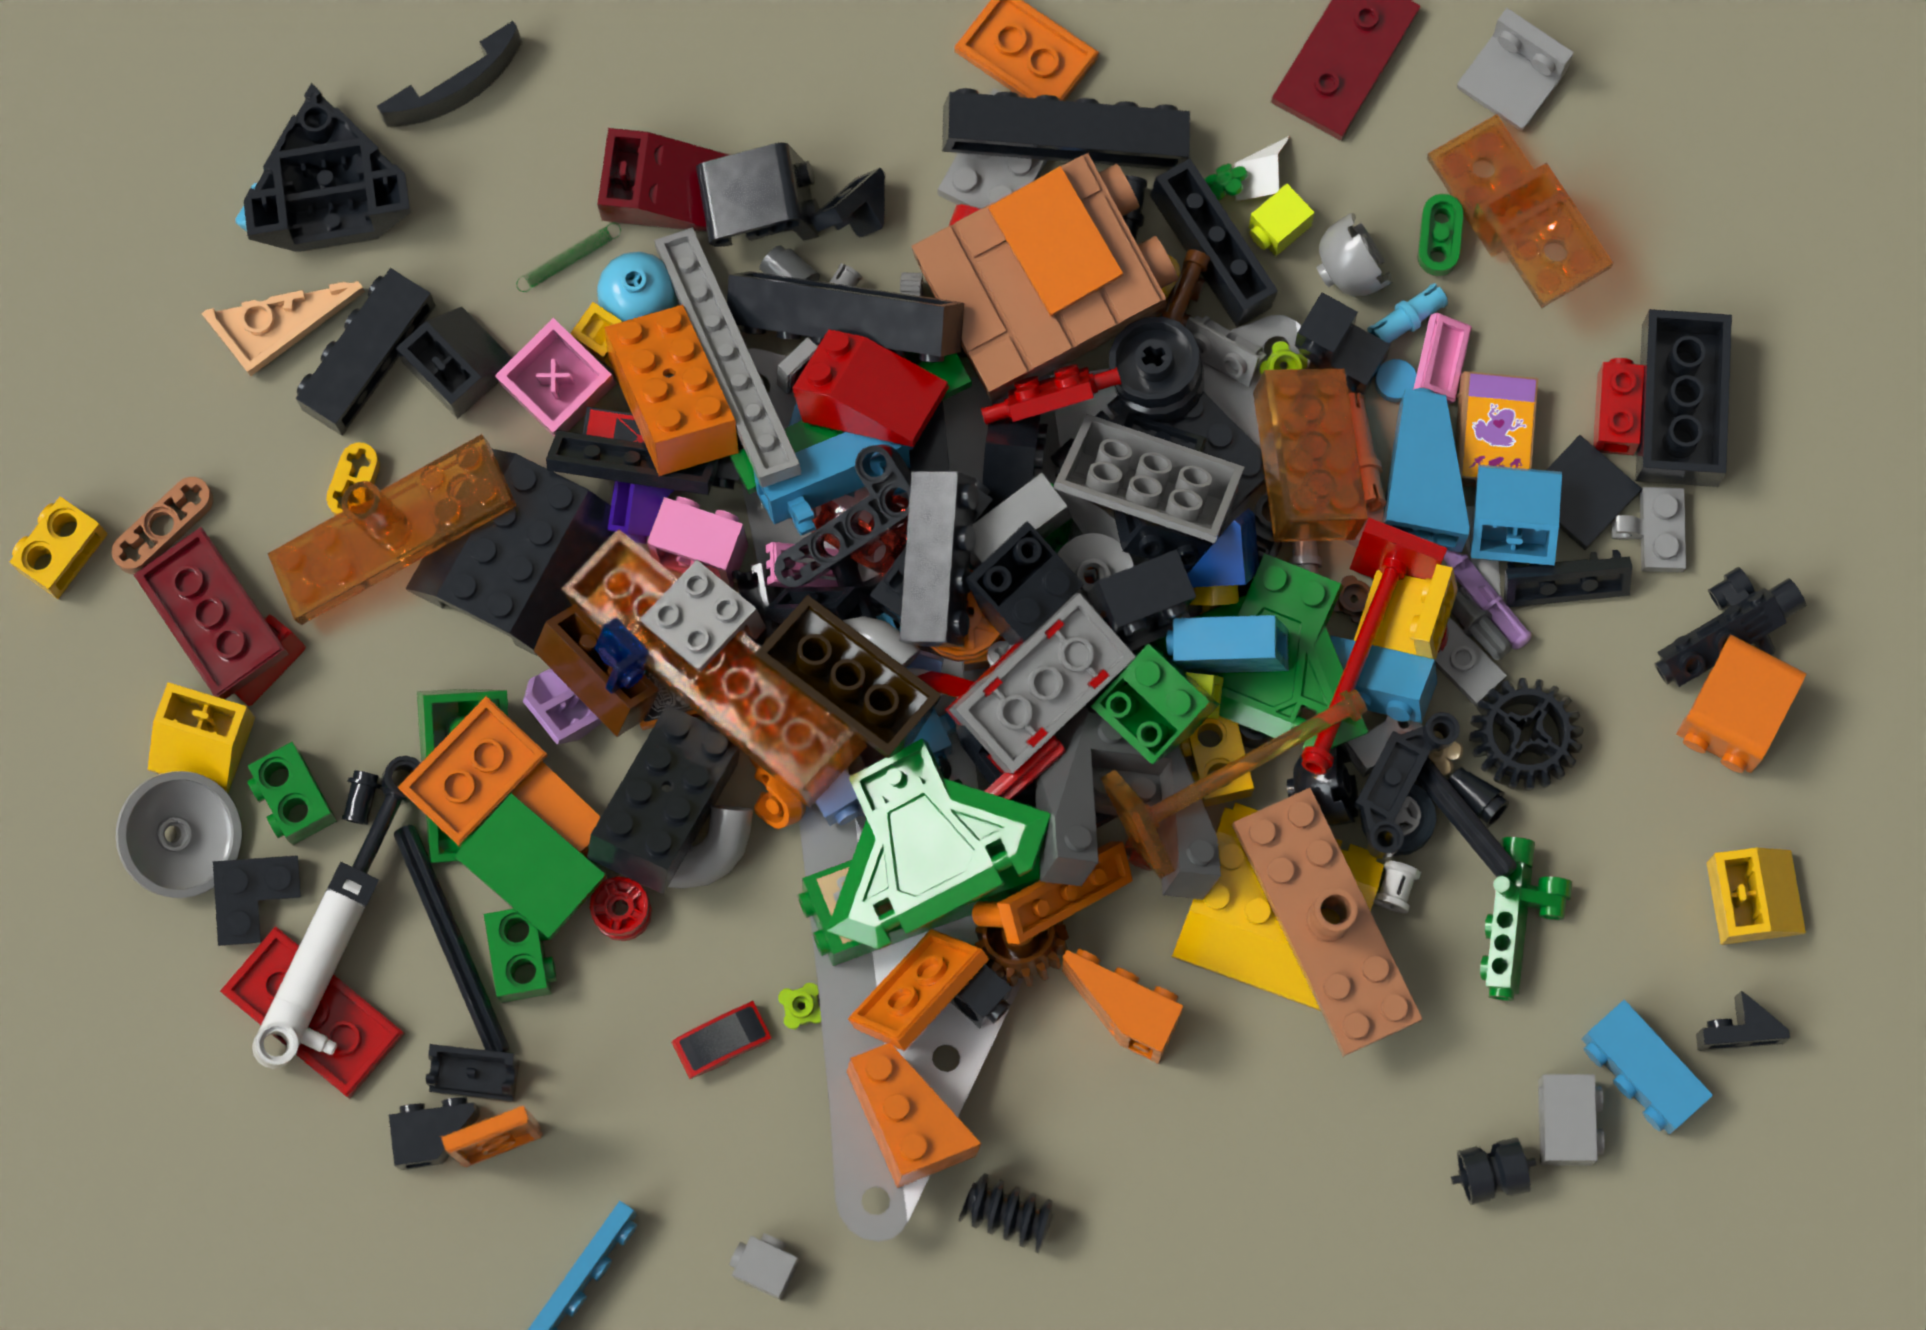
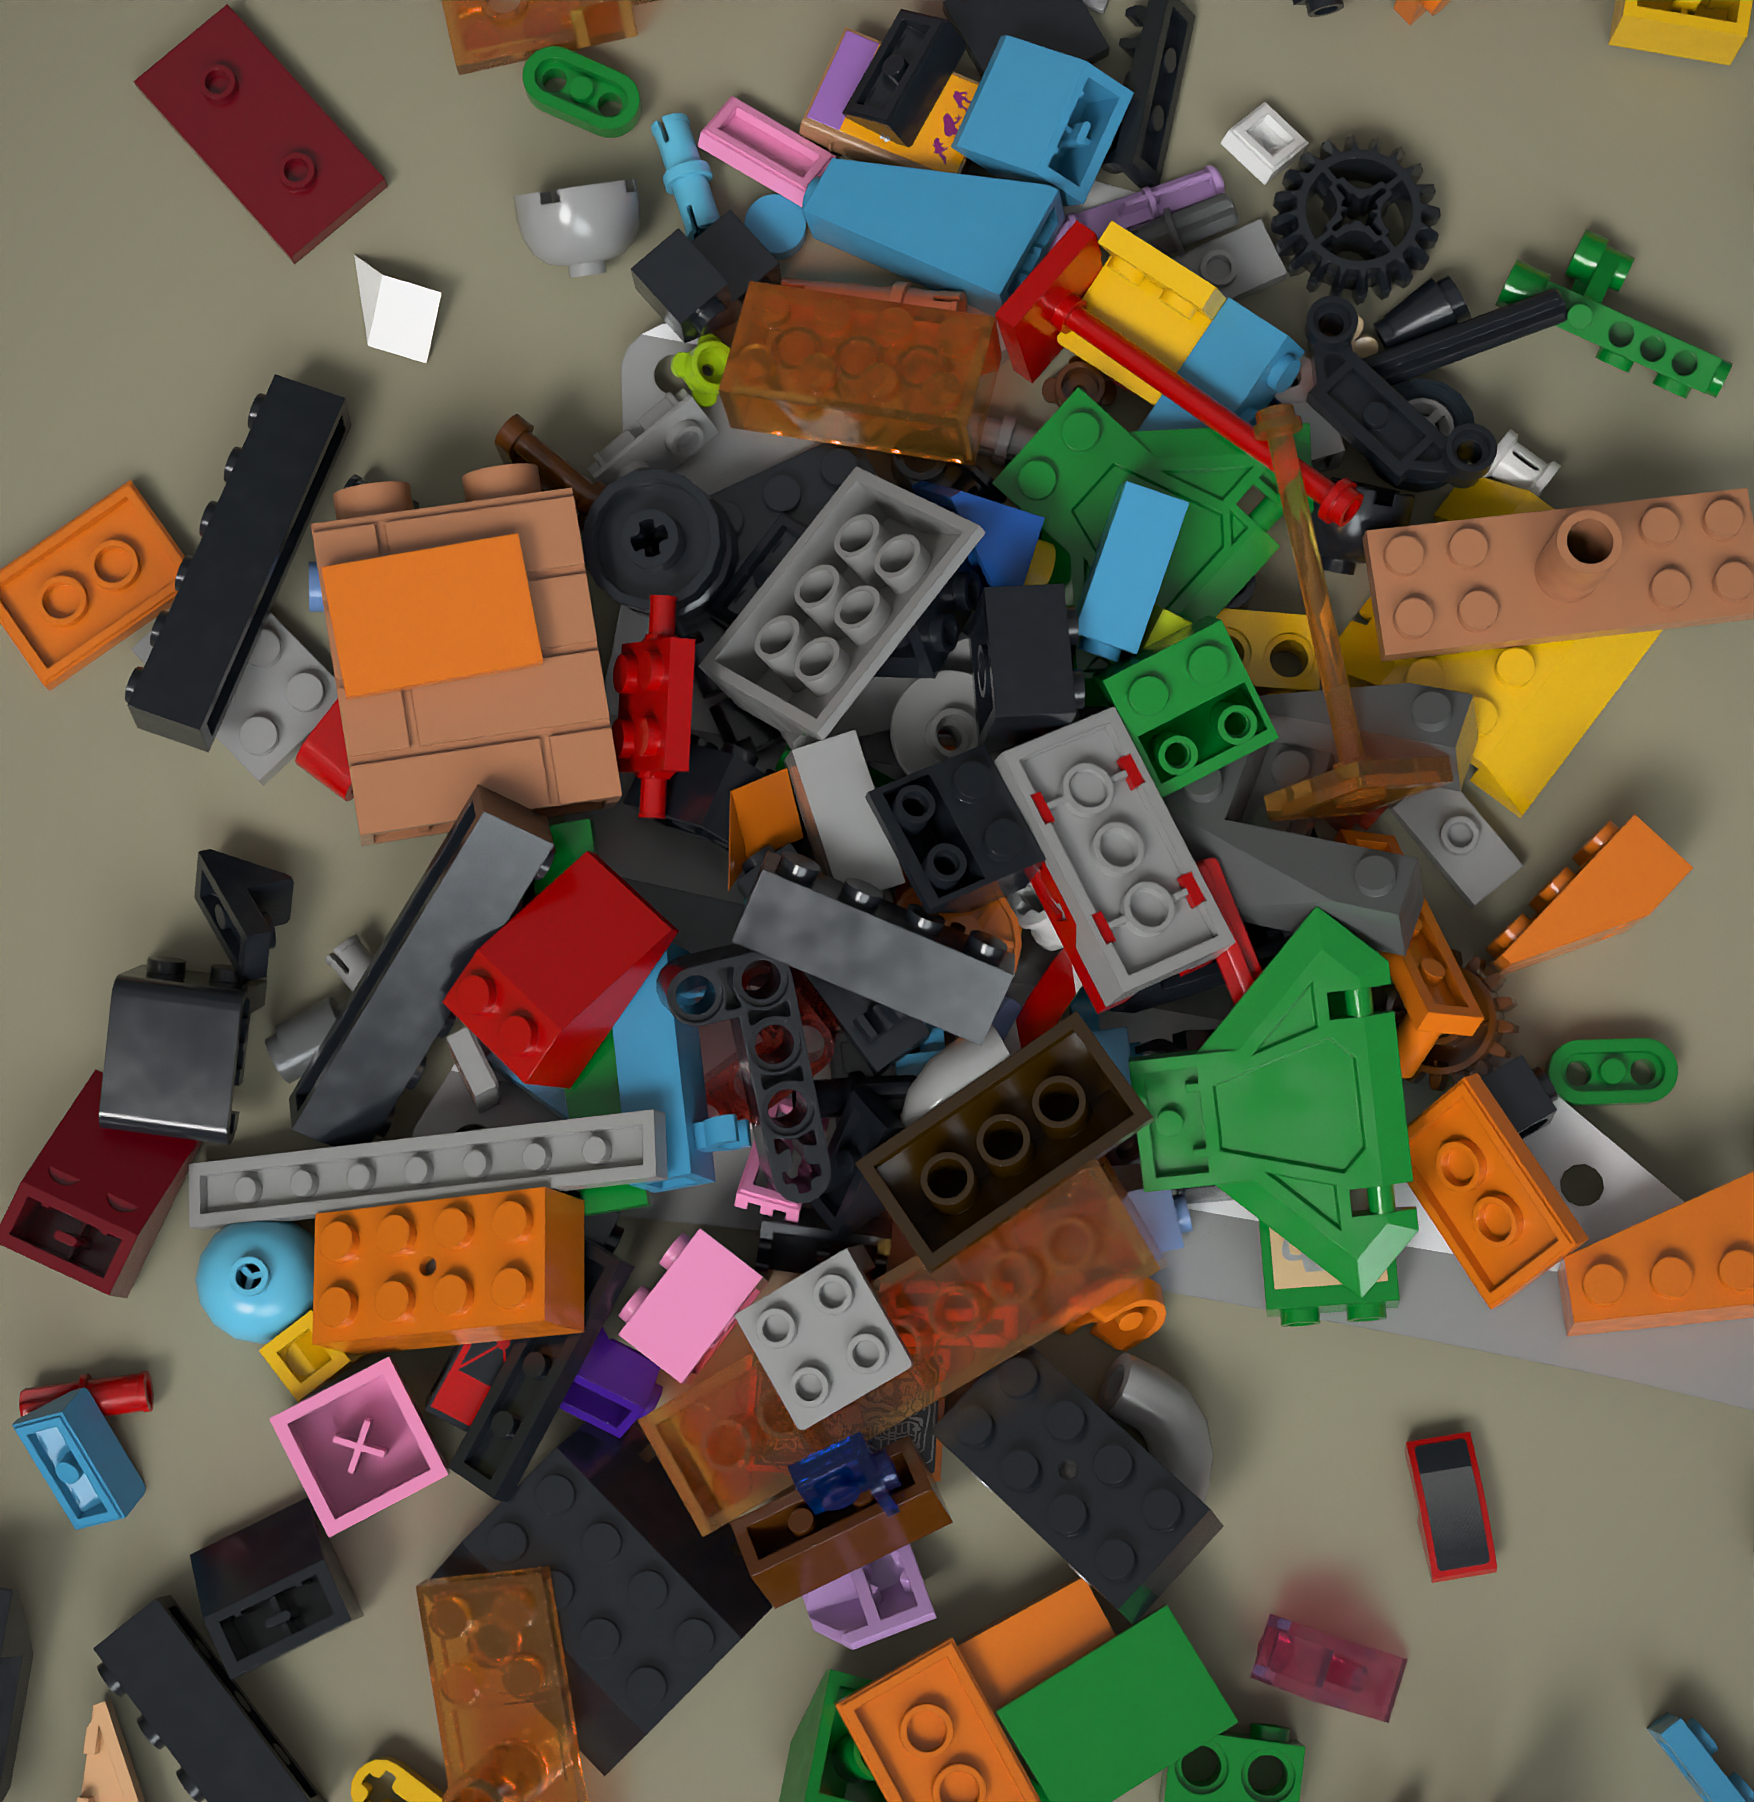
camera: 70 degrees left, 5 degrees up
(498, 225) = (81, 1459): none -> dark azure slope
(535, 218) = (112, 1394): none -> red axle
(572, 262) = (190, 1431): green piece -> none
(599, 994) = (1328, 1668): none -> clear pink slope
(603, 907) = (1230, 1612): red wheel -> none
(790, 1000) = (1421, 1386): lime plate -> none
(911, 283) = (399, 867): light grey axle -> none
(1001, 476) = (761, 816): none -> orange sticker
(1025, 1059) = (1608, 1071): none -> green plate
(1143, 922) = (1458, 842): none -> light grey plate
(1206, 227) = (464, 409): black brick -> none
(1227, 180) = (394, 364): green plant -> none
(1280, 220) = (483, 305): neon yellow brick -> none
(1516, 424) = (906, 76): none -> black slope
(1558, 663) = (1264, 143): none -> white tile

